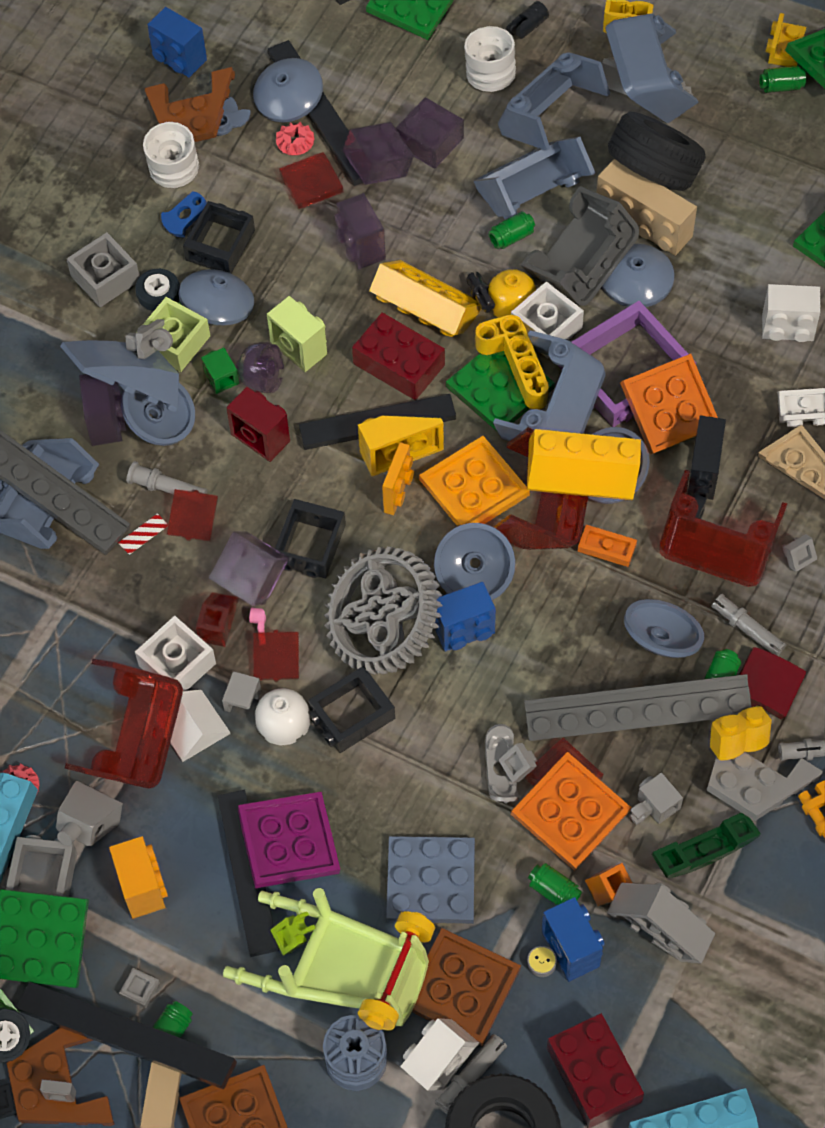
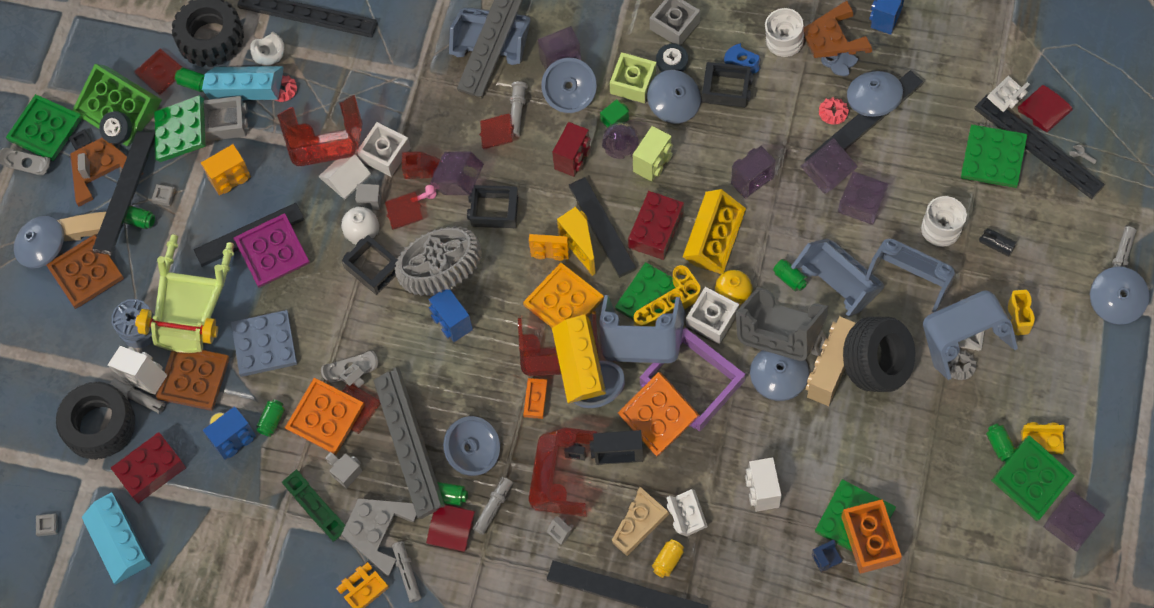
camera: 80 degrees right, 5 degrees up
(86, 815) = (262, 130): light grey torso -> none
(113, 362) = (581, 50): sand blue wedge -> none
(143, 534) = (478, 107): sticker -> none
(149, 339) = (607, 59): light grey hips -> none
(290, 933) = (207, 267): lime plate -> none
(311, 180) = (798, 131): clear red tile -> none
(479, 292) = (727, 265): black axle -> none
(480, 542) = (489, 307): sand blue dish -> none
(606, 883) = (274, 449): orange brick -> none
(664, 918) = (249, 485): light grey wedge -> none
(740, 733) = (394, 507): yellow brick -> none

